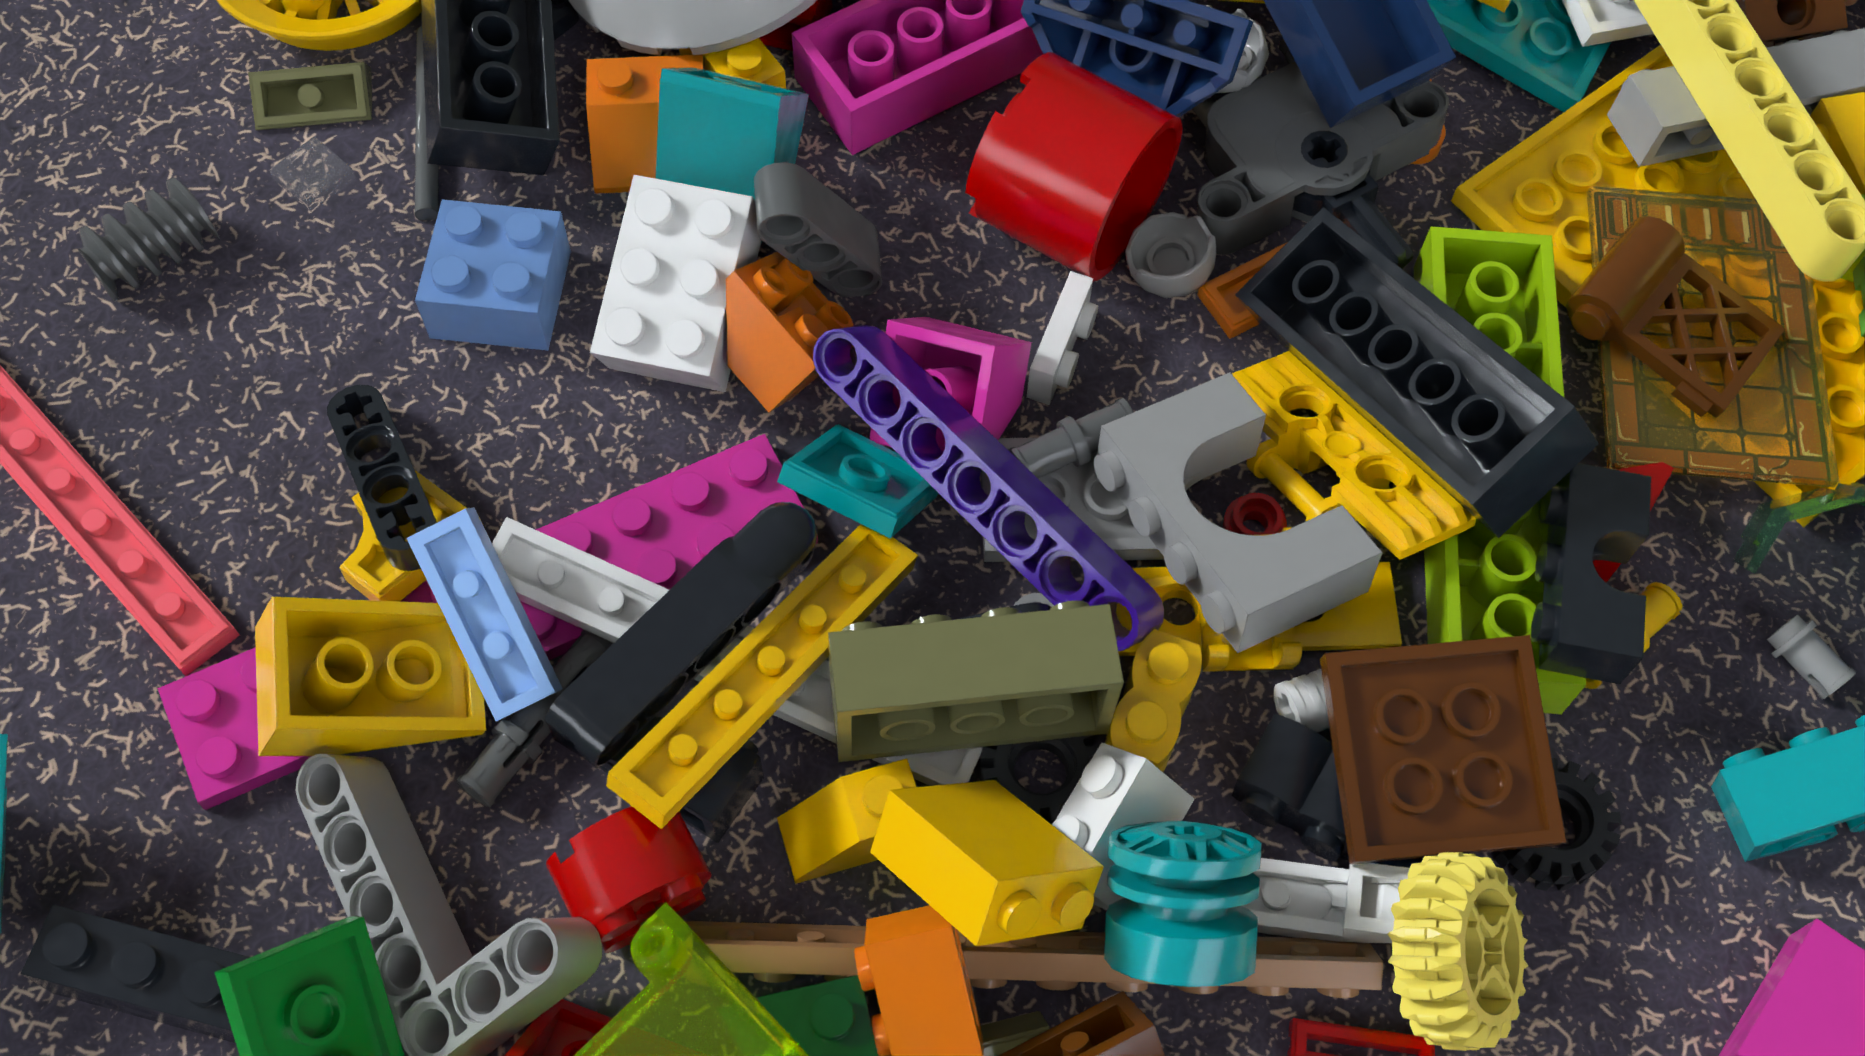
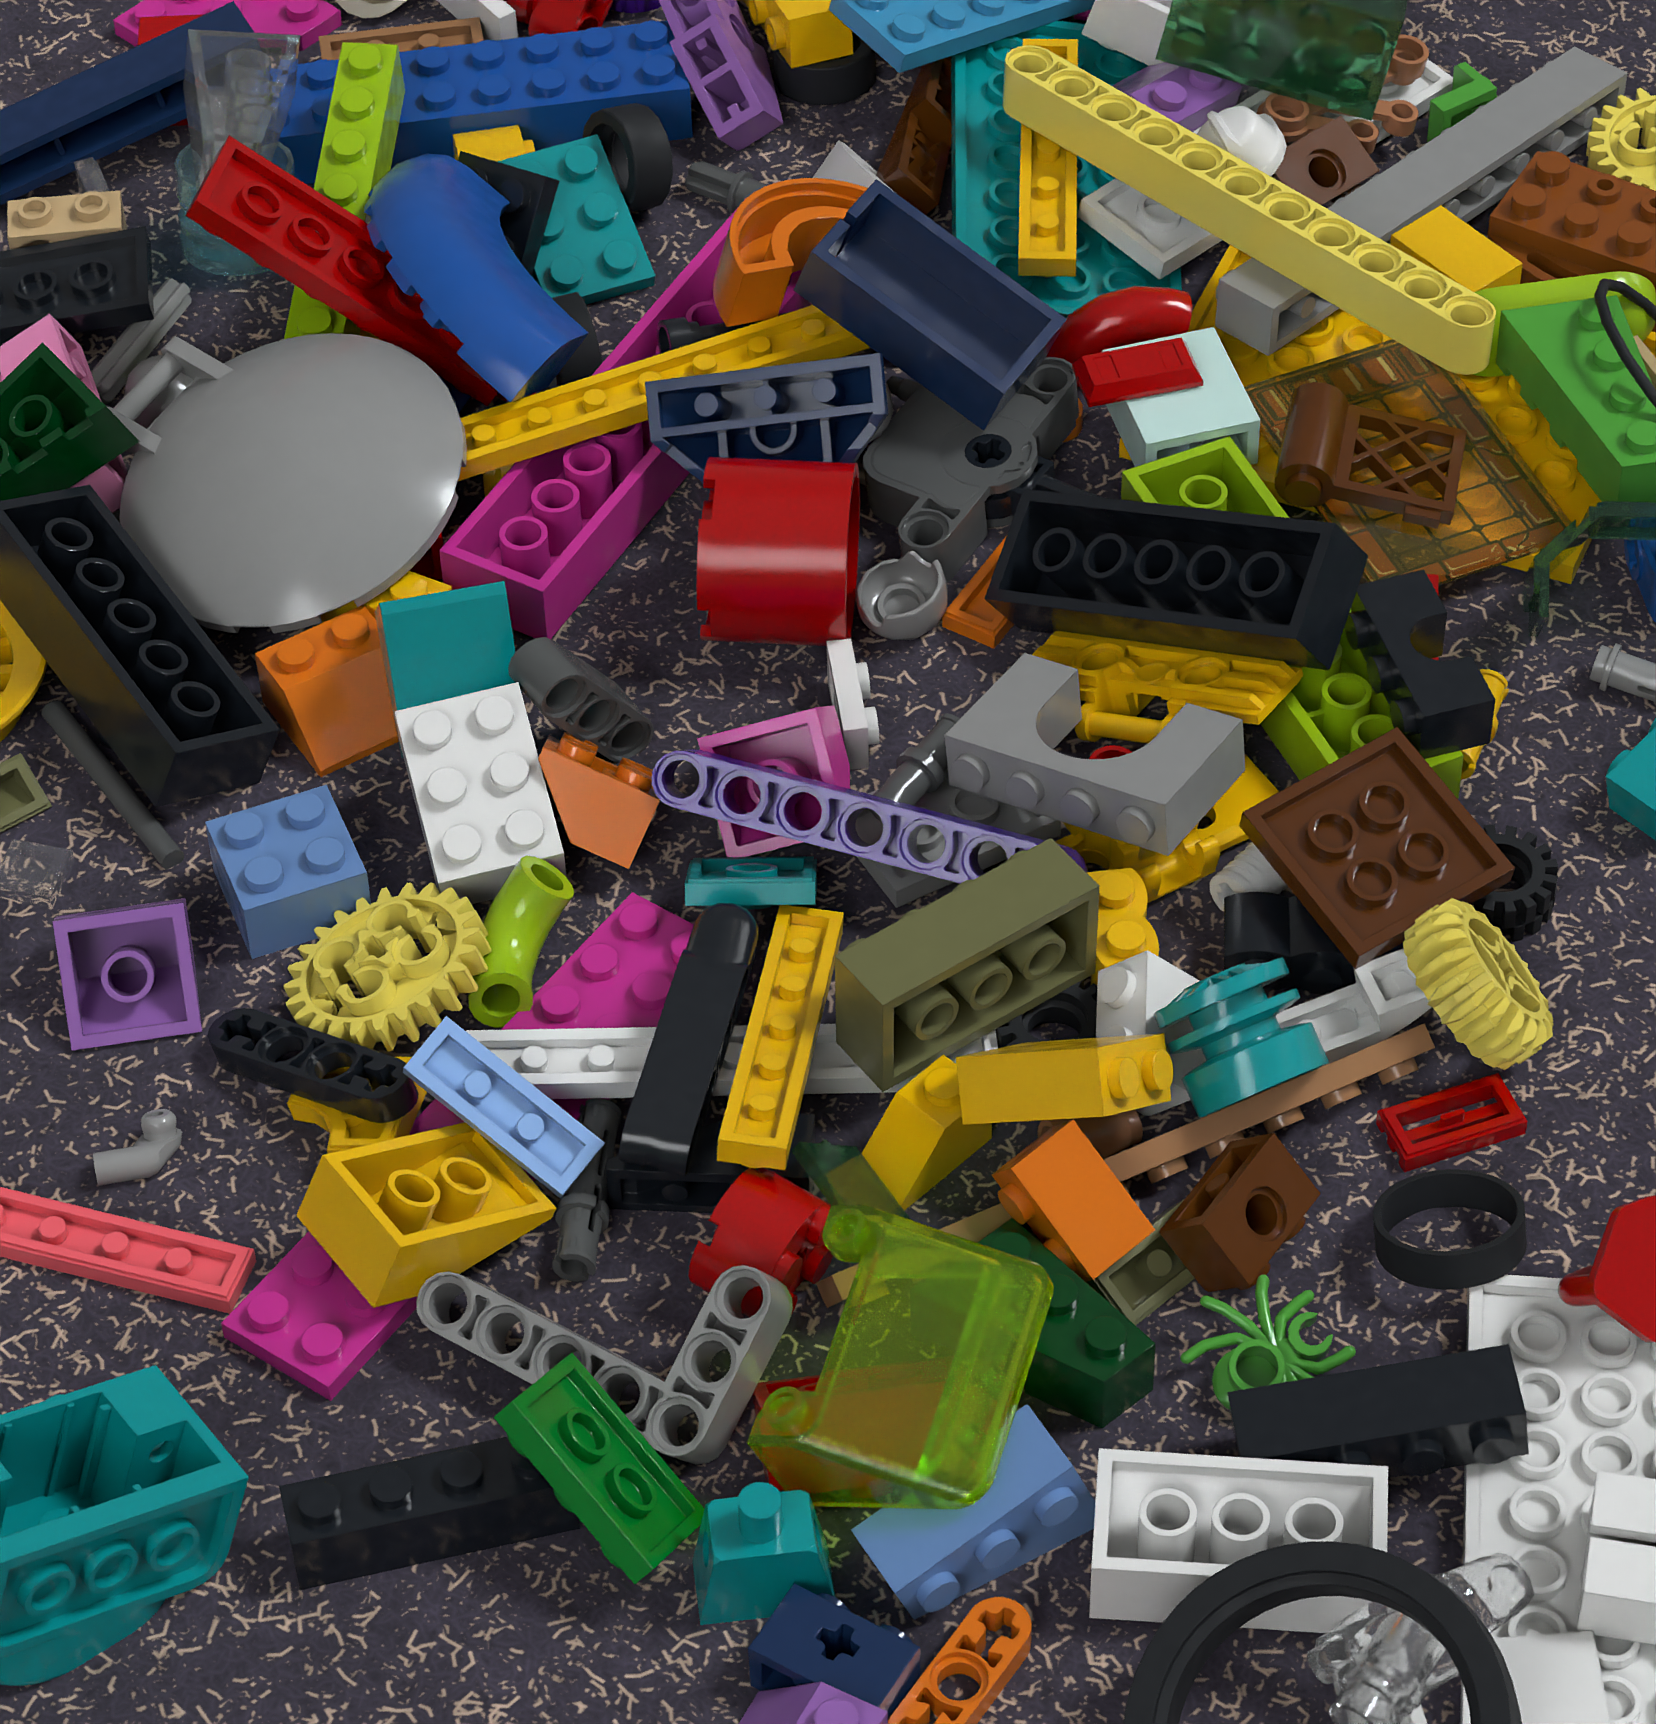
camera: 25 degrees left, 15 degrees down
(234, 479) = (147, 1154): none -> light grey arm
(310, 304) = (128, 974): none -> medium lavender slope
(513, 423) = (381, 958): none -> light yellow gear
(627, 436) = (517, 931): none -> lime cylinder
(748, 859) = (845, 1176): none -> clear green piece
(1499, 135) = (1136, 372): none -> red tile
(1516, 73) = (1123, 319): none -> red cylinder
(1529, 174) = (1192, 416): none -> light aqua brick

